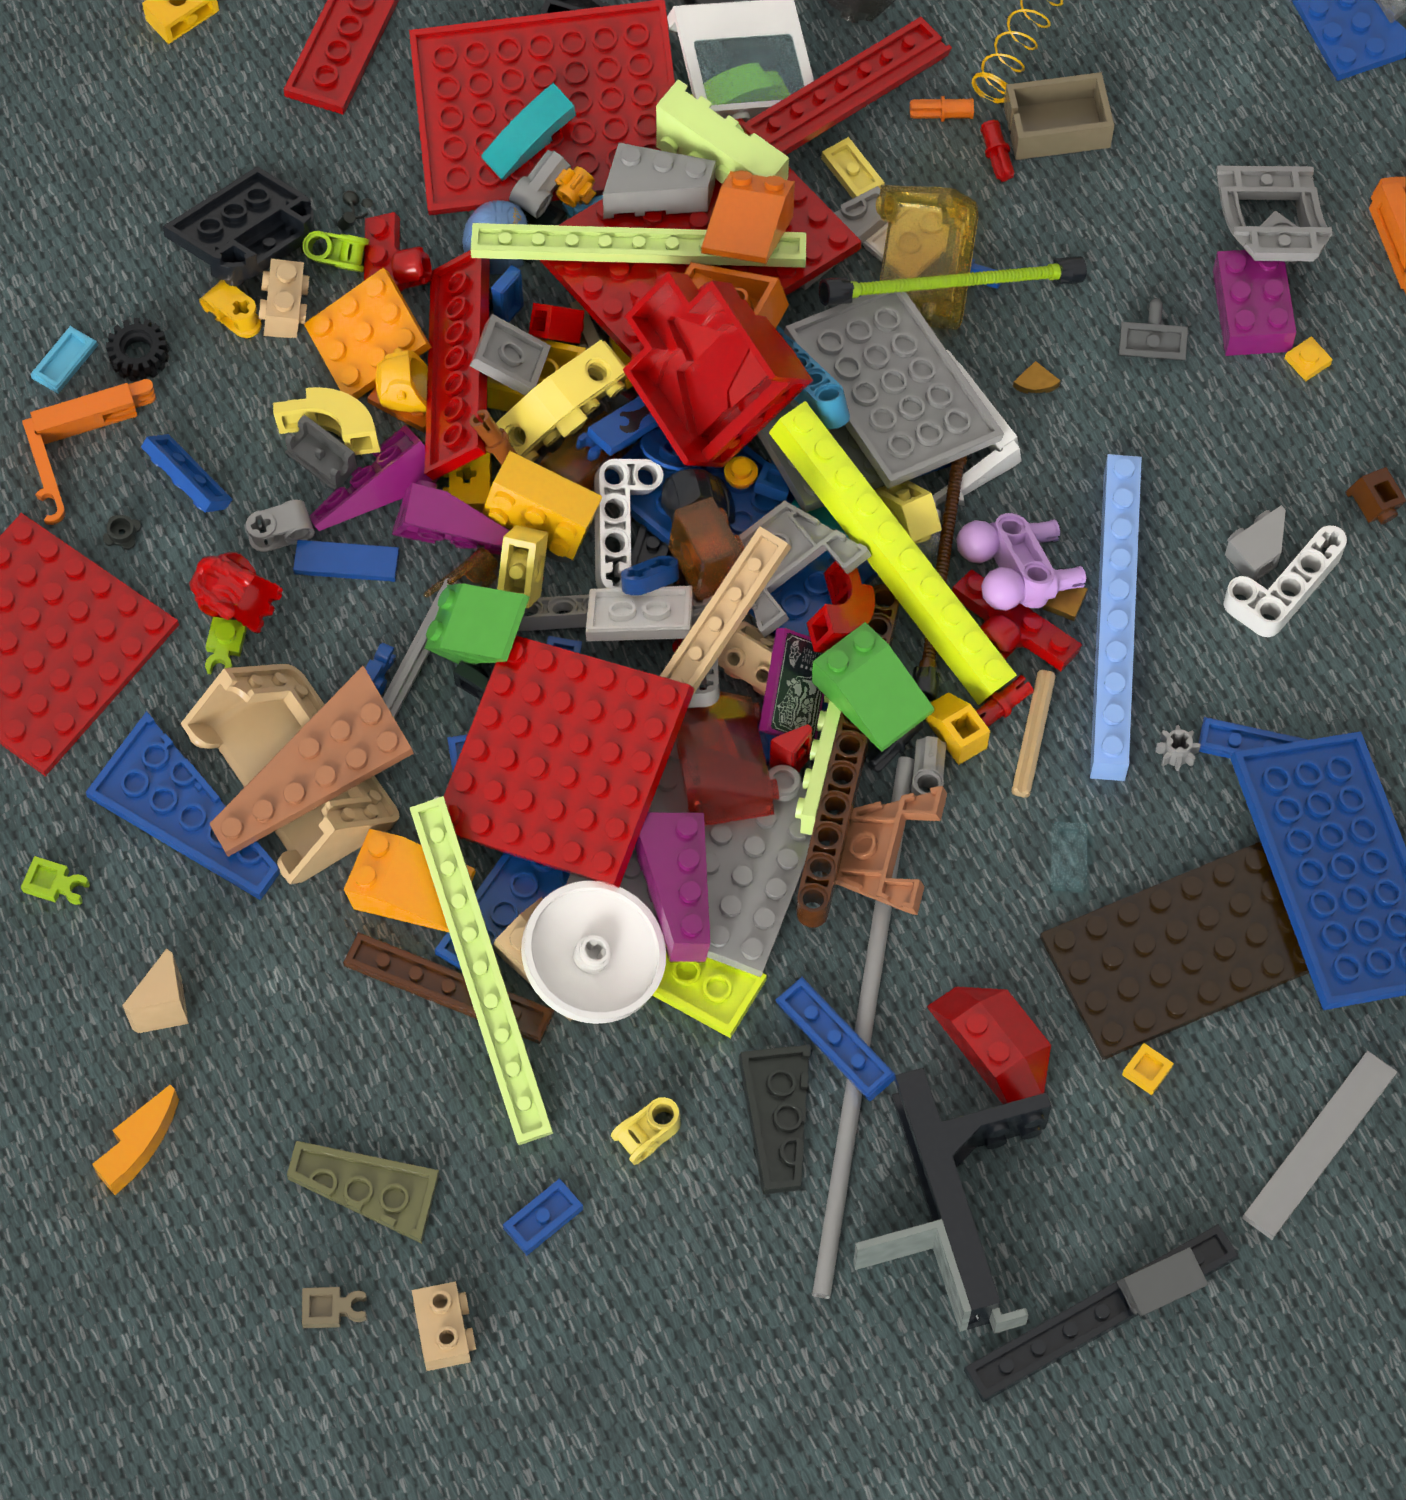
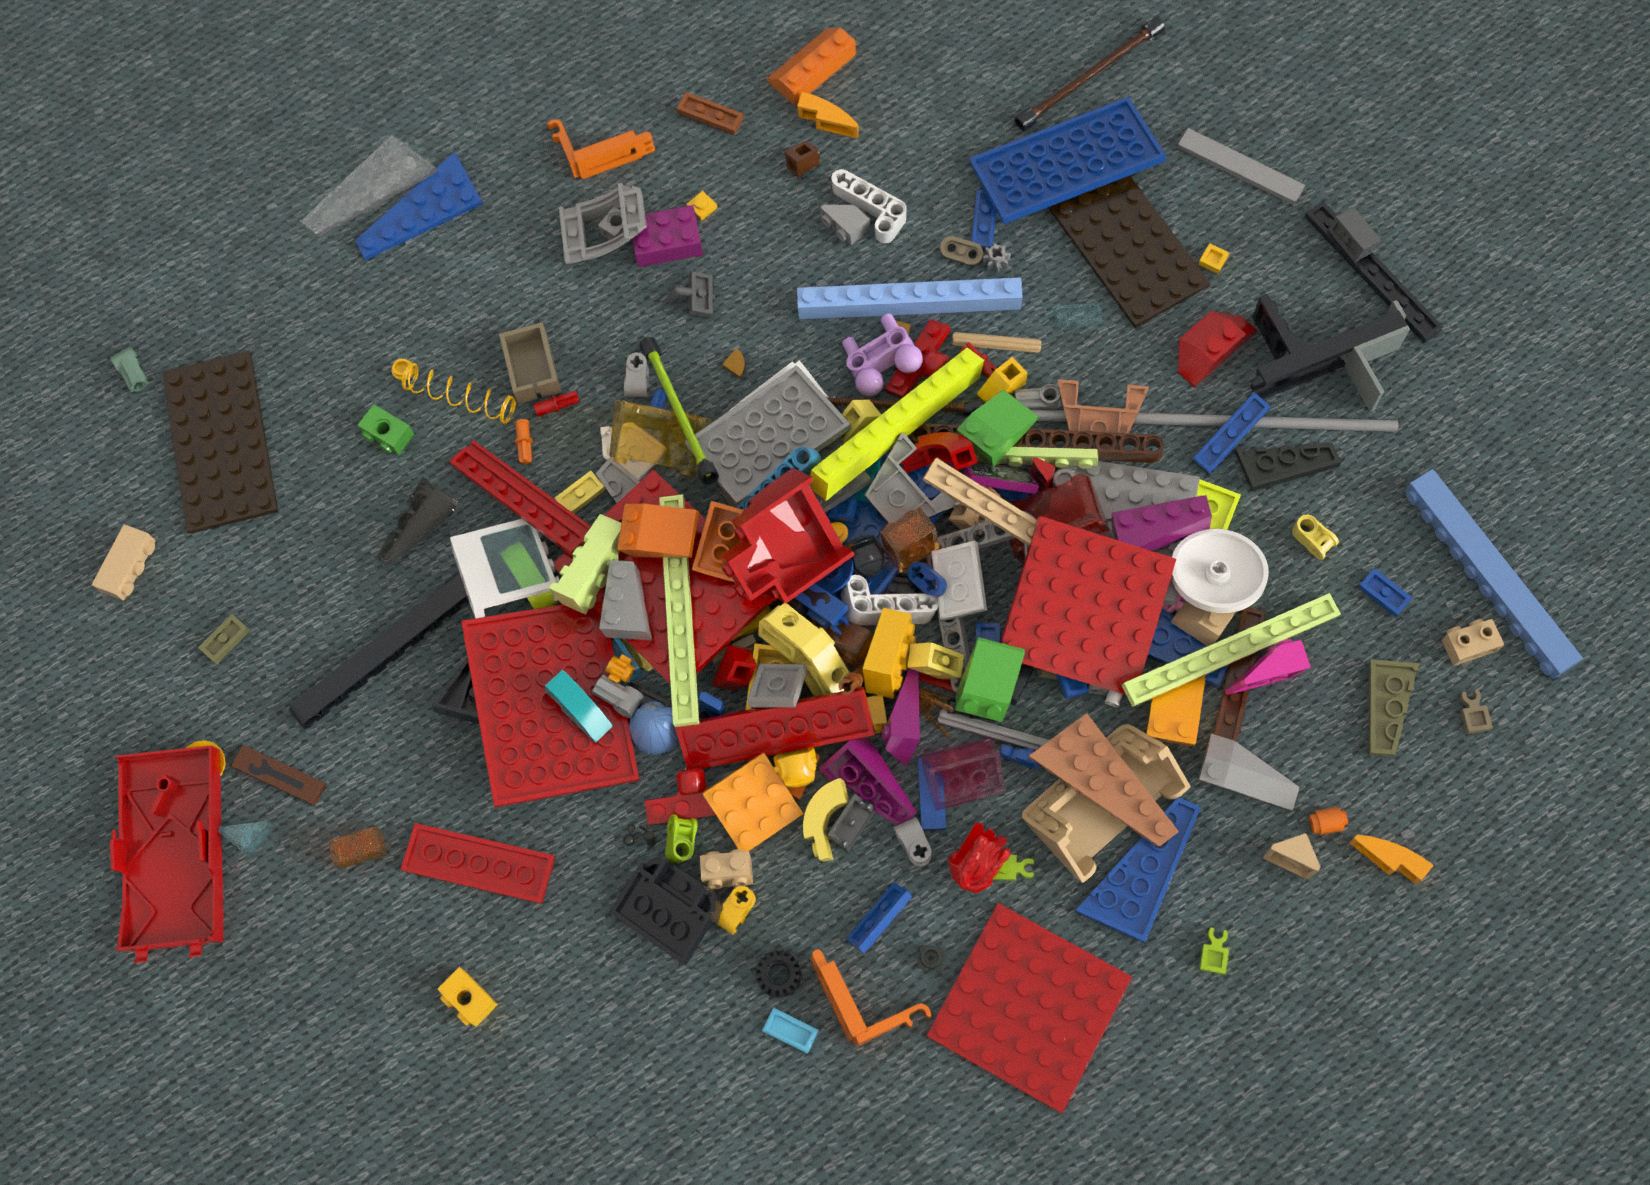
camera: 90 degrees left, 5 degrees up
(208, 1064) = (1328, 821): none -> orange brick
(300, 952) = (1240, 771): none -> light grey wedge
(365, 595) = (967, 771): none -> clear pink slope
(442, 1021) = (1277, 665): none -> dark pink slope
(548, 1380) = (1493, 575): none -> medium blue brick
(1024, 248) = (636, 379): none -> light grey piece
(1194, 704) = (962, 251): none -> dark tan plate

